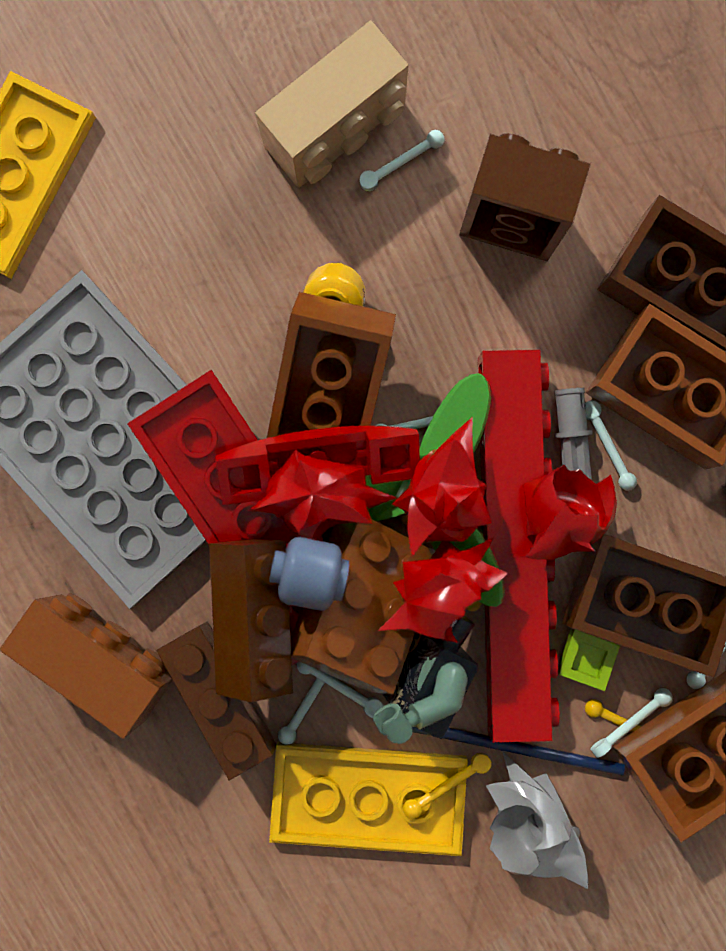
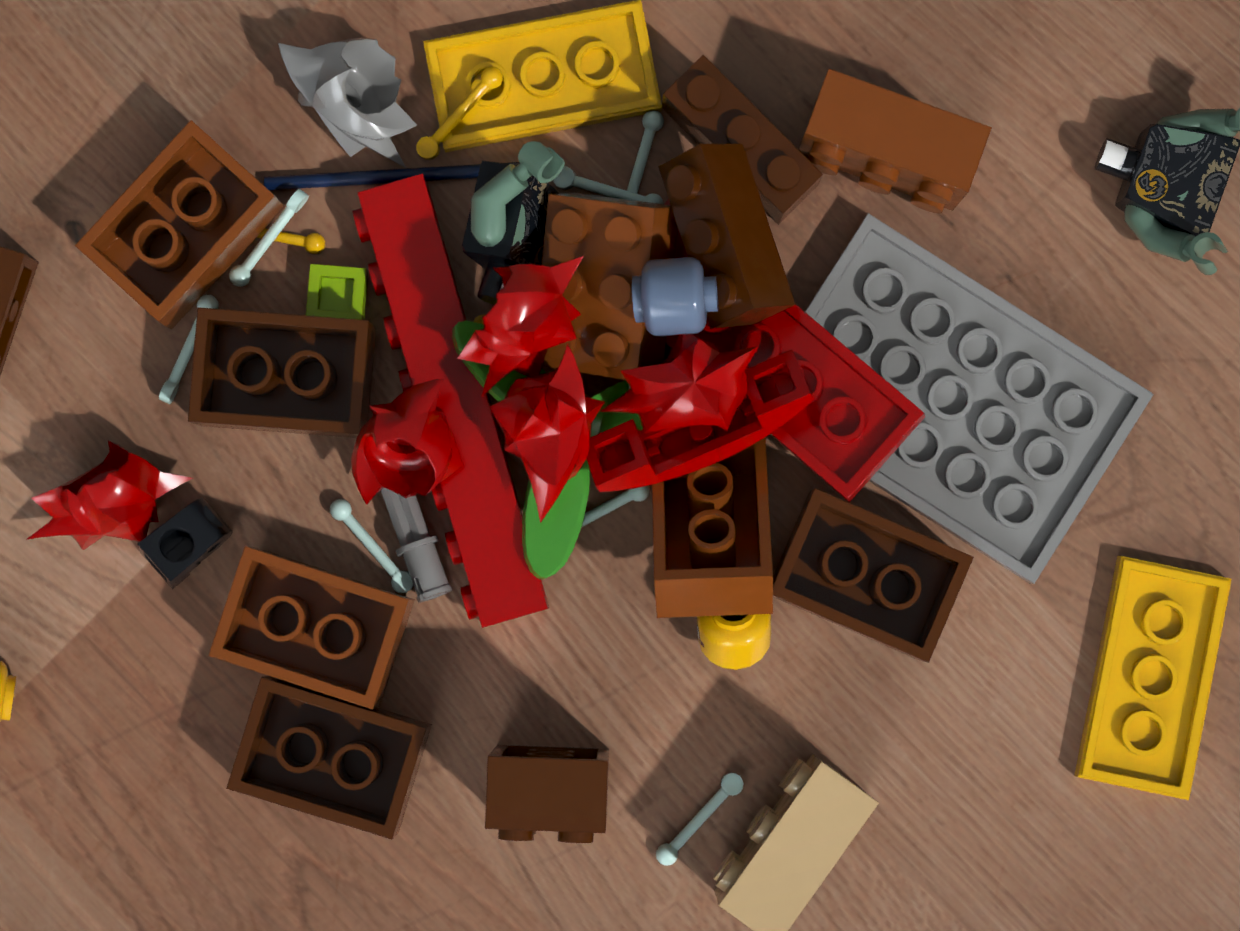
camera: 165 degrees right, 0 degrees up
(211, 307) = (870, 575): none -> reddish brown brick

